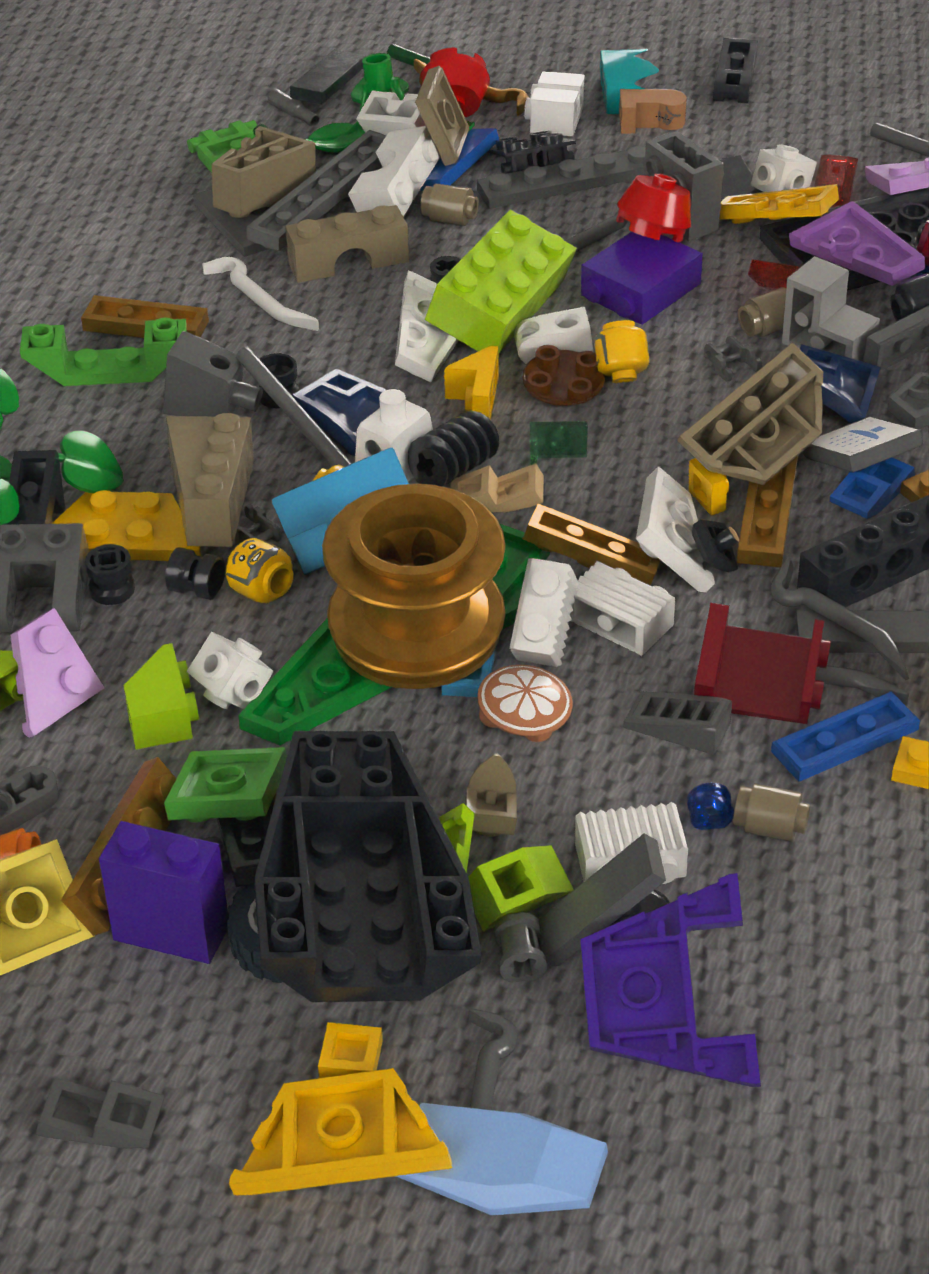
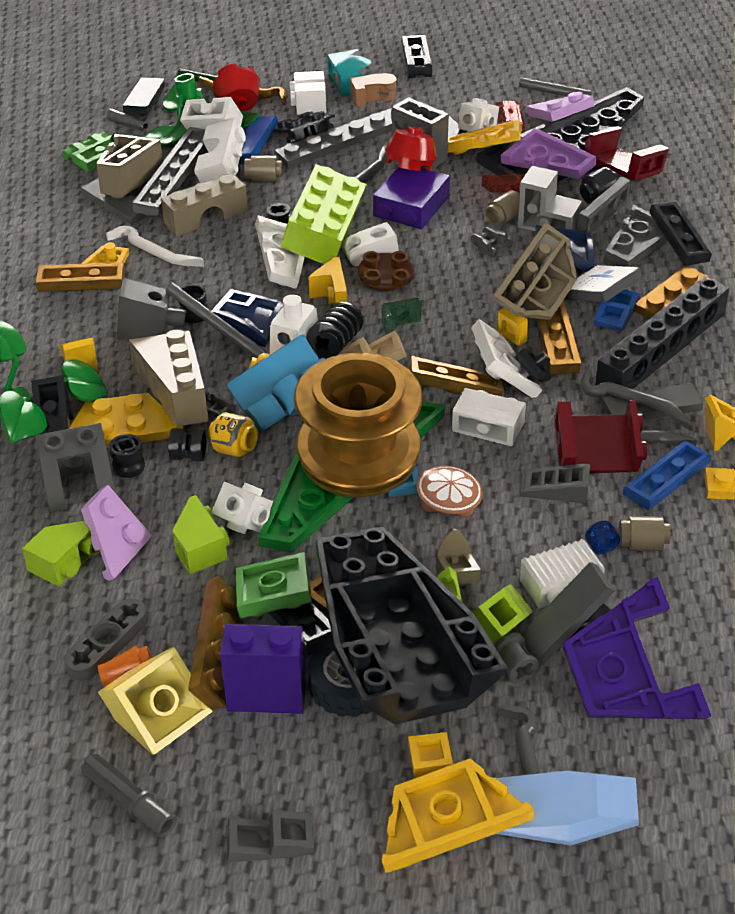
camera: 15 degrees left, 0 degrees up
(48, 351) = (104, 292): bright green slope -> none
(102, 422) = (80, 350): none -> yellow slope
(193, 294) = (108, 254): none -> yellow piece
(442, 115) = (242, 109): dark tan tile -> none
(543, 612) = (445, 428): white brick -> none
(621, 351) = (420, 247): yellow head -> none

